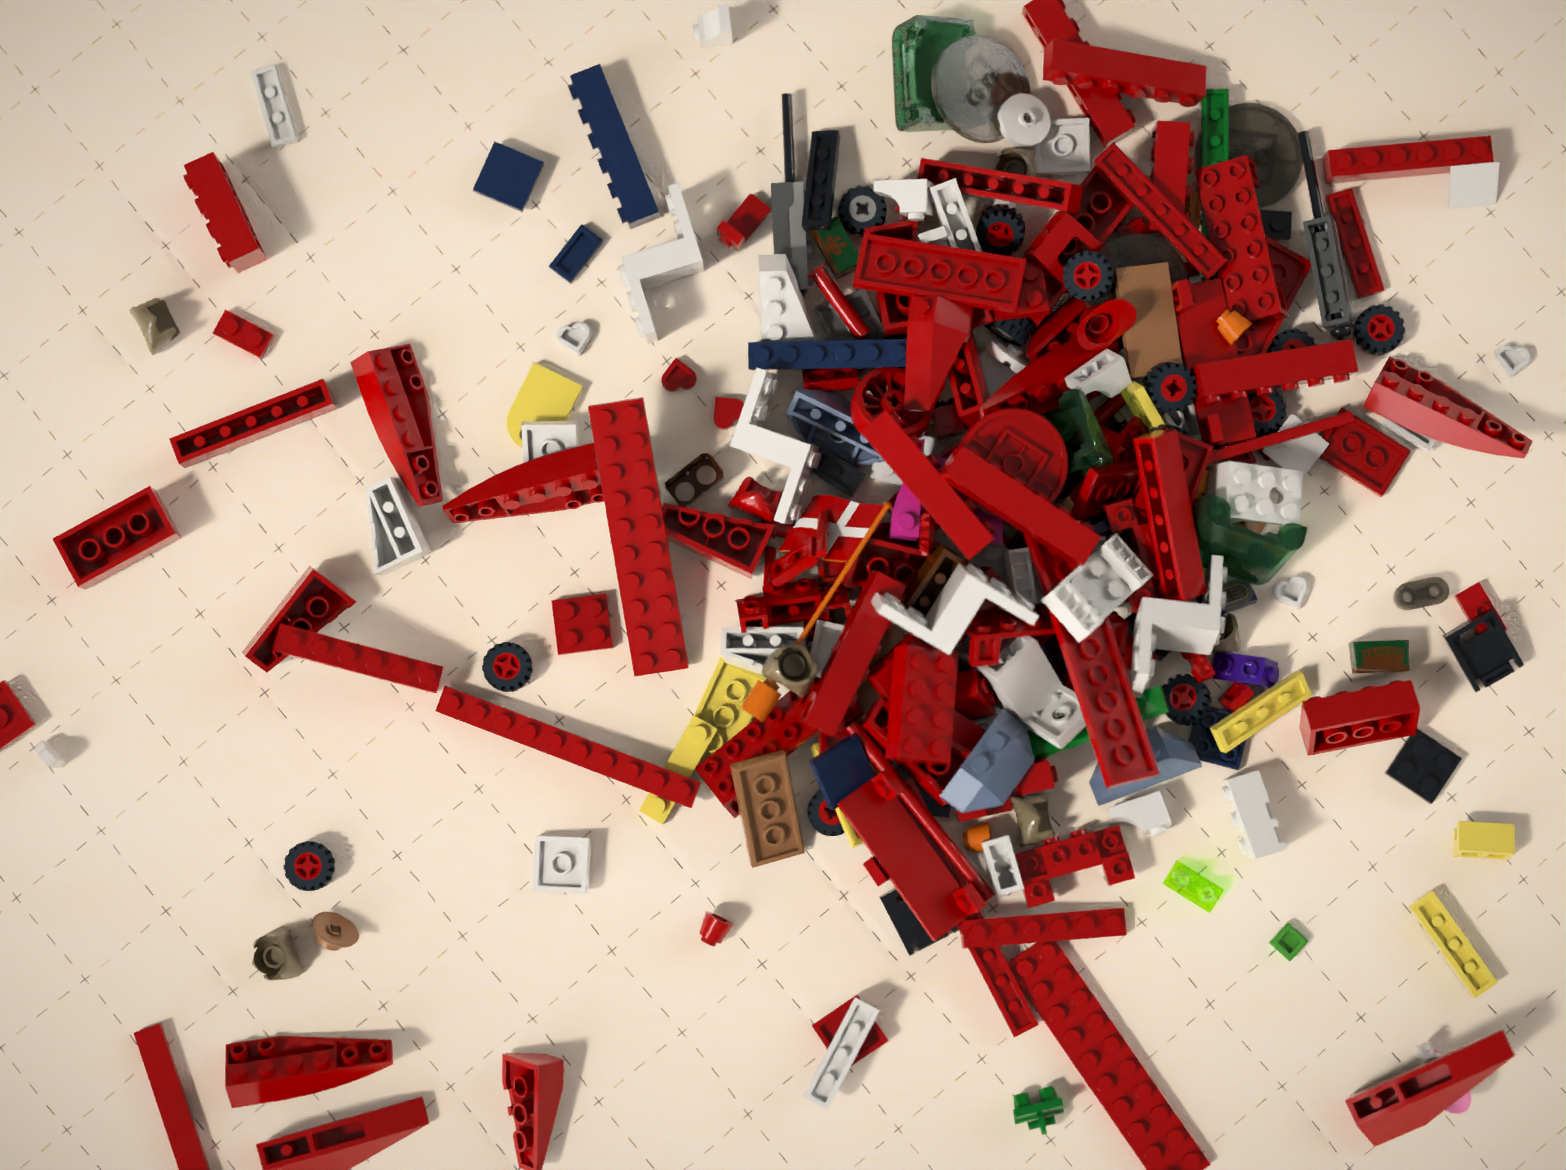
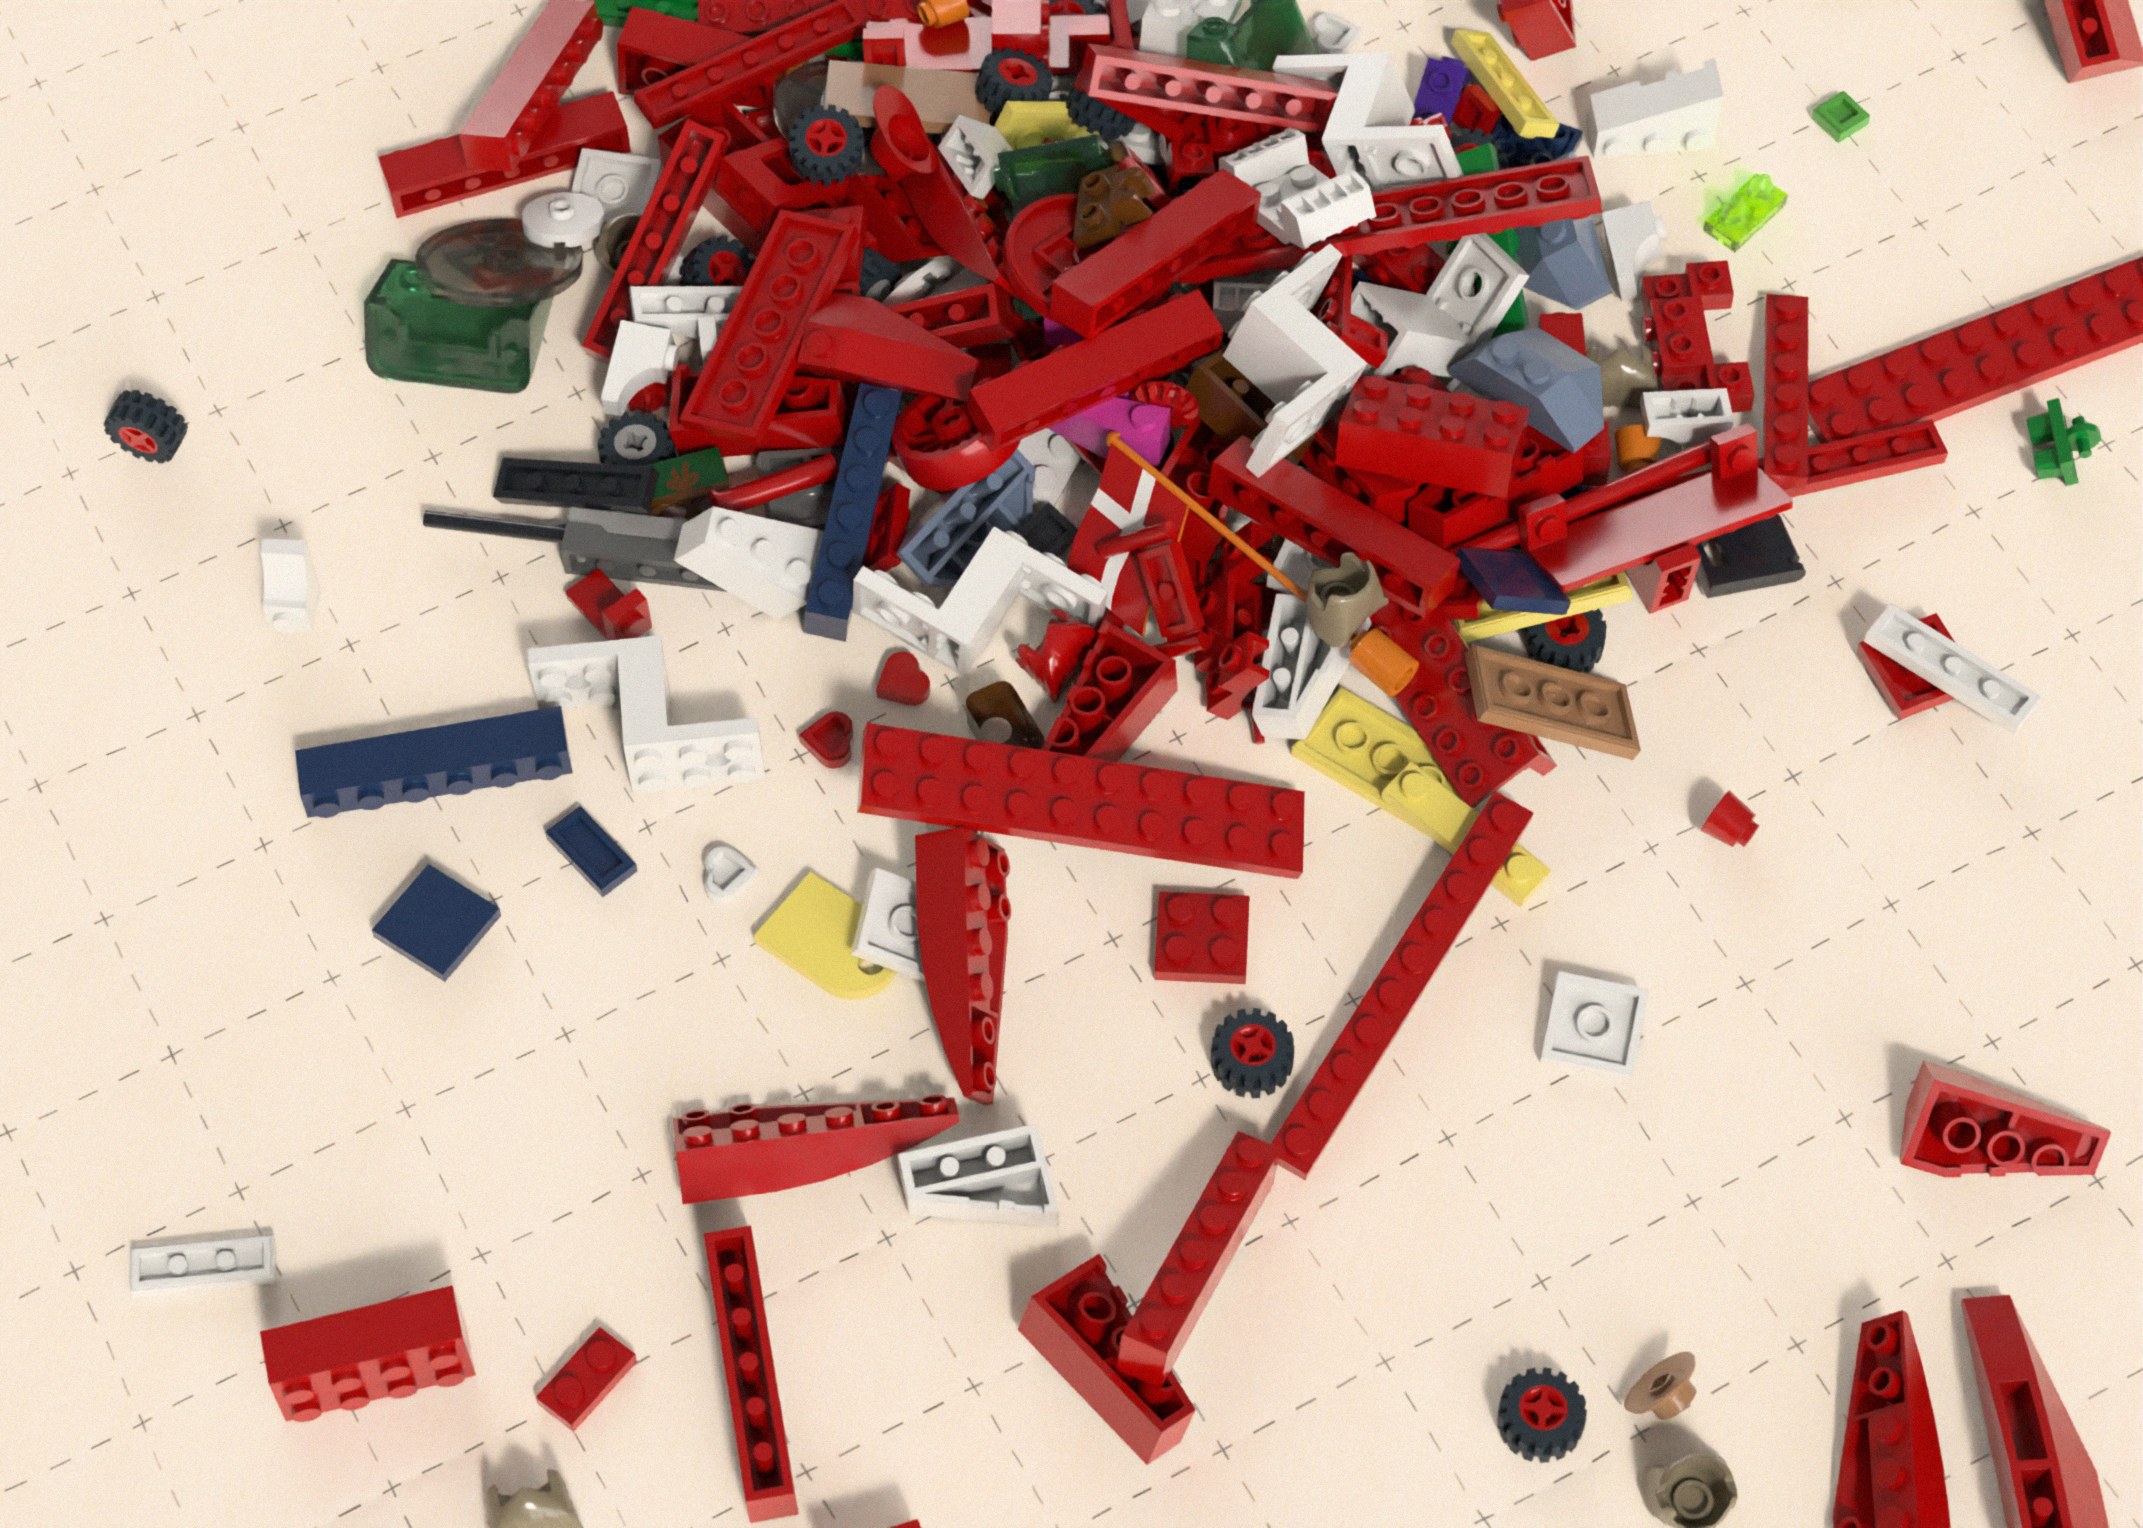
camera: 80 degrees left, 25 degrees down
(1048, 467) = (1107, 199): none -> reddish brown plate

